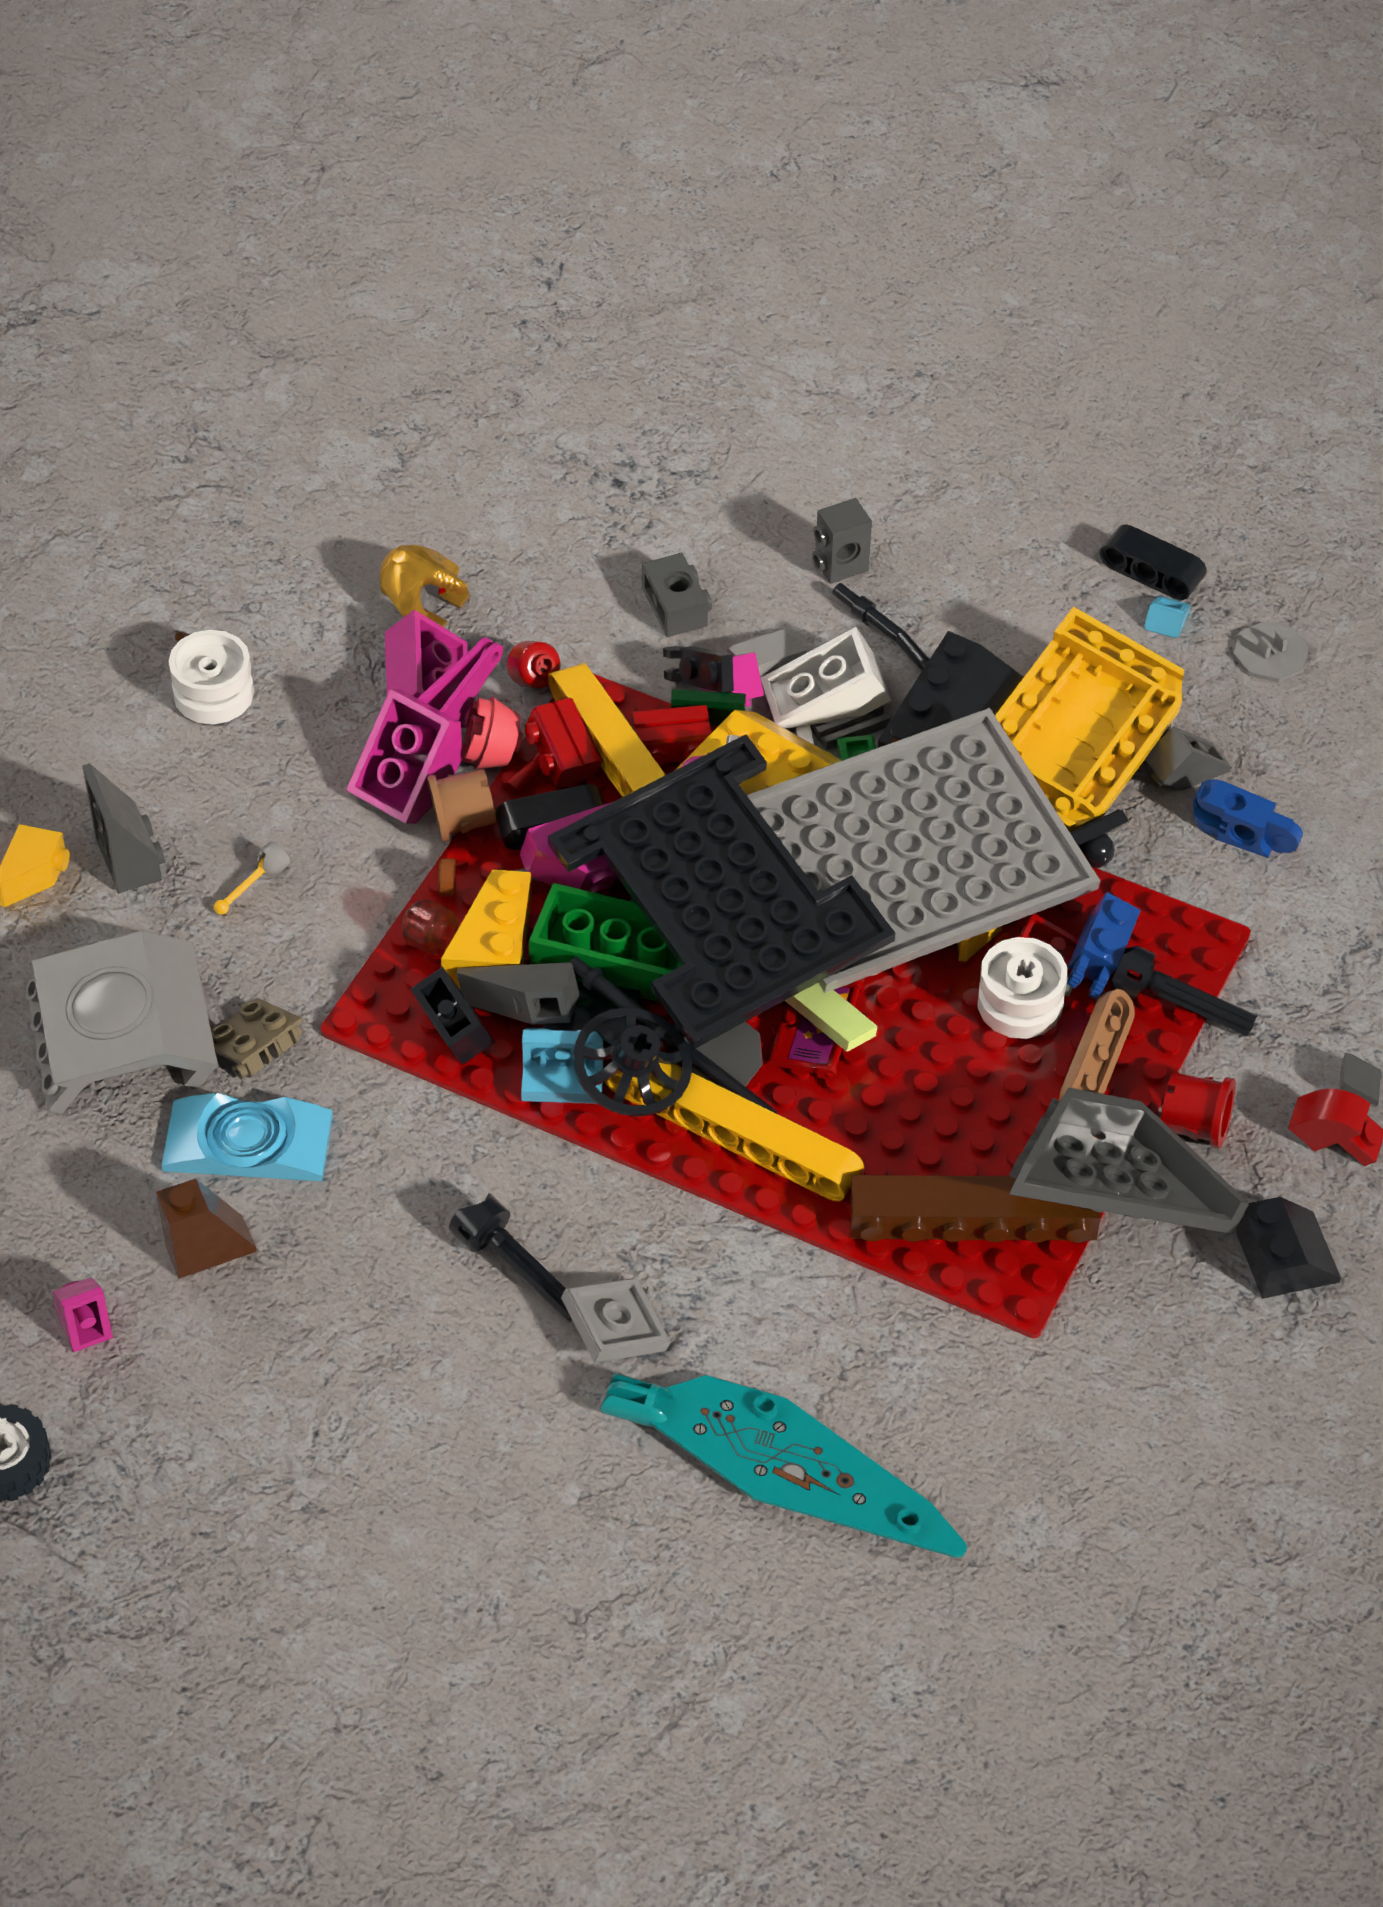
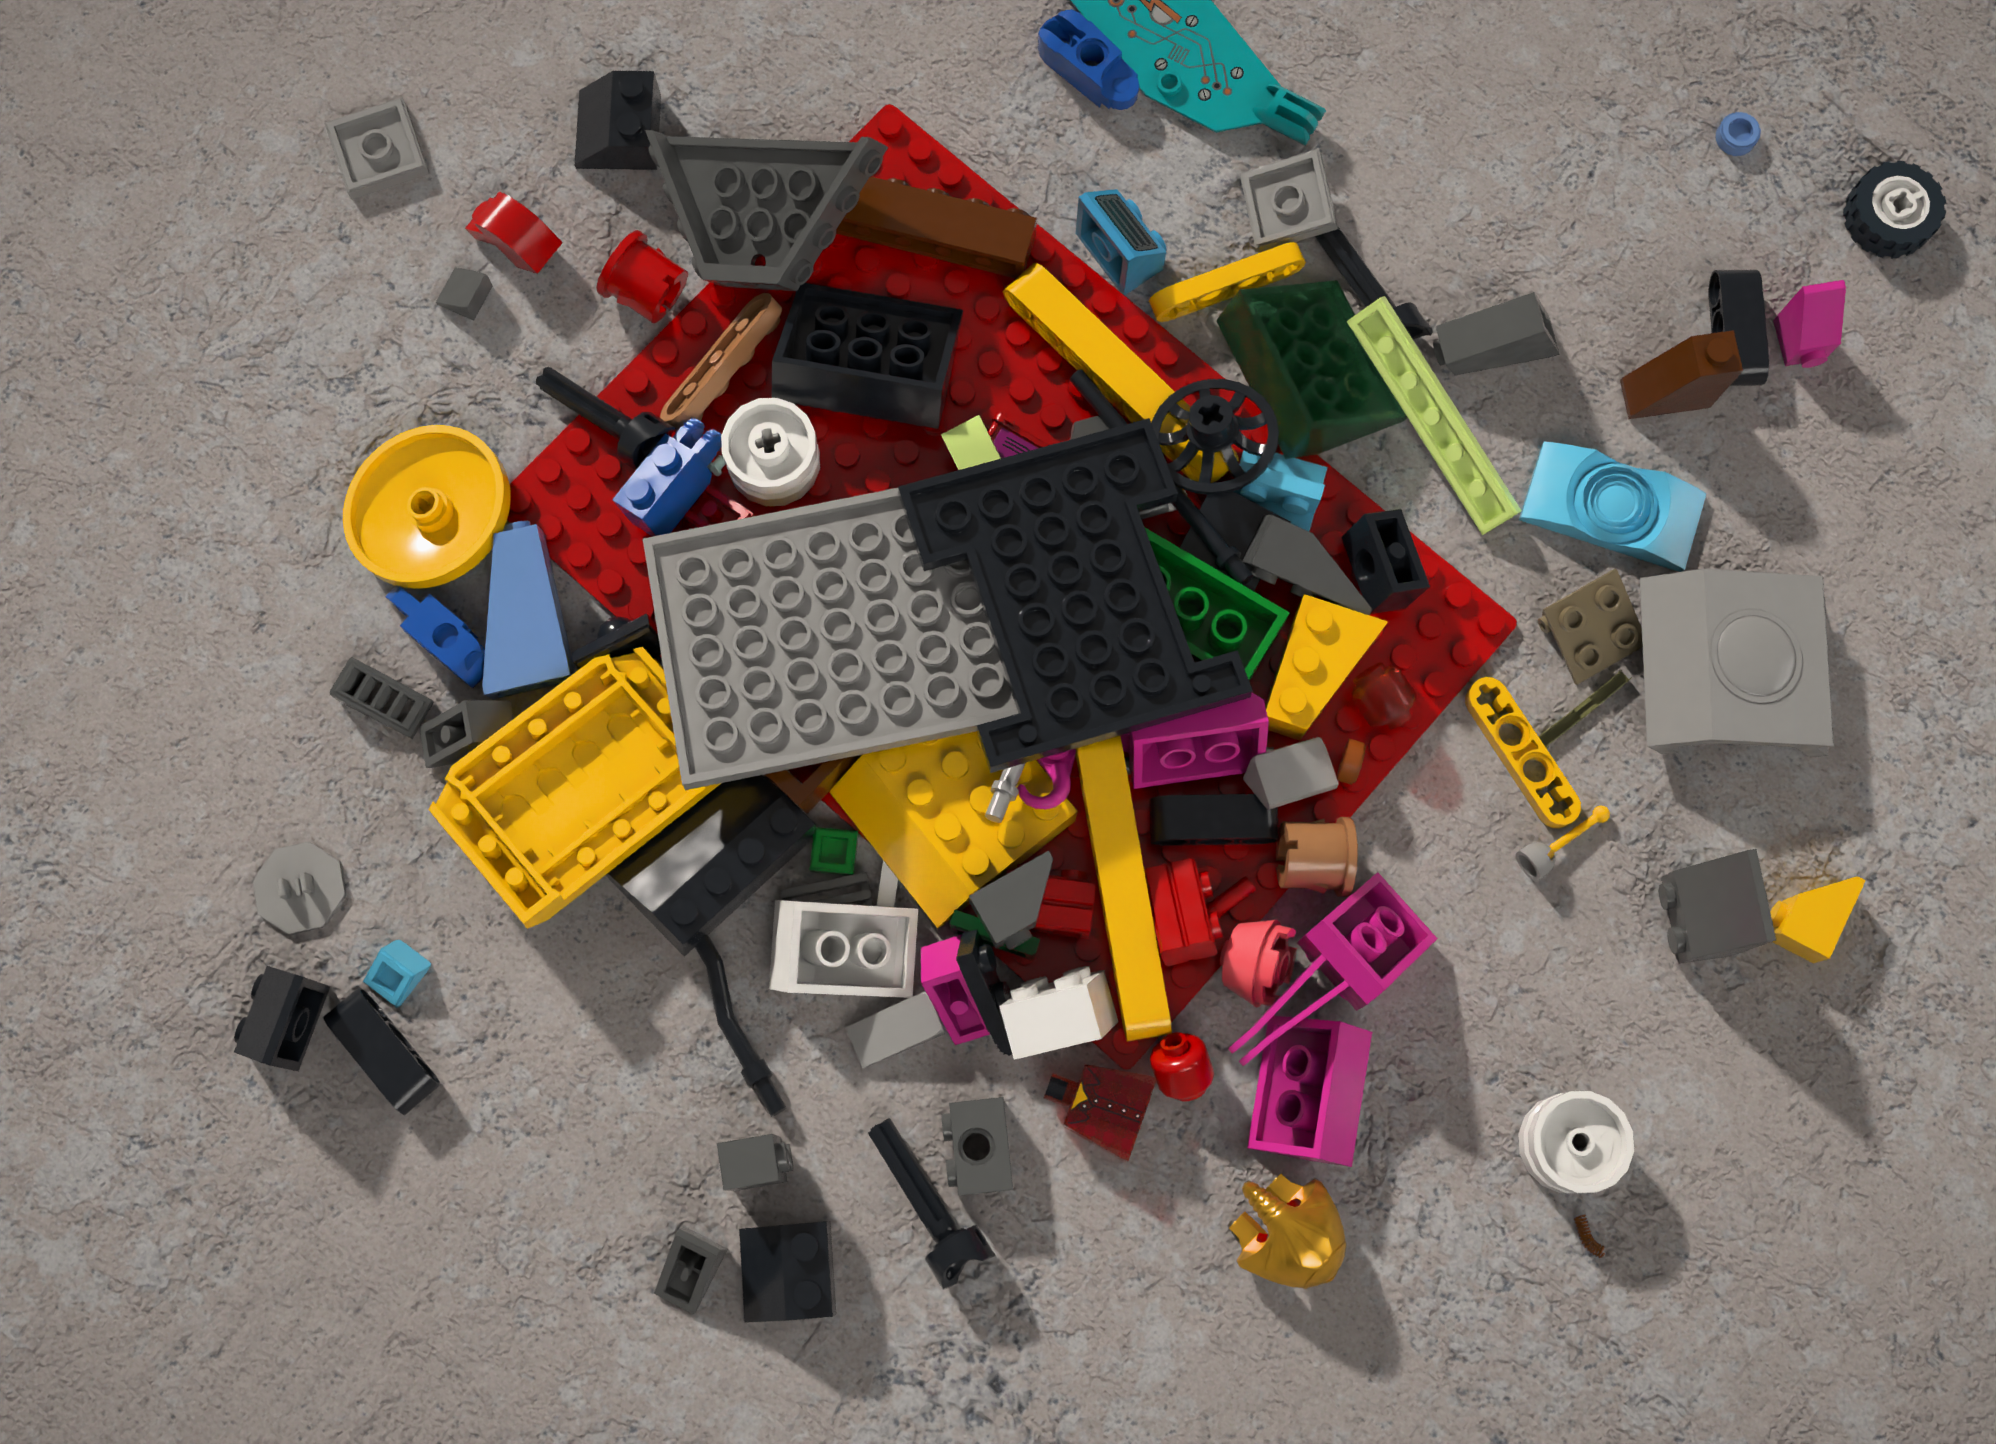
camera: 165 degrees left, 25 degrees up
(150, 1306) = (1738, 305): none -> black beam
(170, 1500) = (1738, 134): none -> medium blue tile
(232, 995) = (1583, 709): none -> olive piece
(302, 930) = (1529, 749): none -> yellow beam
(381, 1237) = (1497, 337): none -> dark grey slope
(434, 1151) = (1433, 415): none -> yellowish green tile
(493, 848) = (1291, 773): none -> light grey slope
(555, 1175) = (1308, 365): none -> clear green slope
(588, 633) = (1104, 1106): none -> torso
(640, 658) = (1058, 1013): none -> white brick
(655, 1236) = (1226, 282): none -> yellow beam
(677, 529) = (953, 1246): none -> black piece
(702, 702) = (1013, 902): none -> dark grey slope
(769, 1237) = (1119, 238): none -> dark azure slope
(786, 500) = (787, 1272): none -> black slope
(869, 493) = (689, 1269): none -> dark grey slope
(878, 1421) = (1107, 83): none -> blue piece
(966, 1088) = (866, 355): none -> black slope
(1177, 840) = (525, 620): none -> medium blue slope
(1237, 557) = (280, 1018): none -> black slope
(1290, 783) = (351, 677): none -> dark grey slope
(1300, 895) = (426, 506): none -> yellow dish

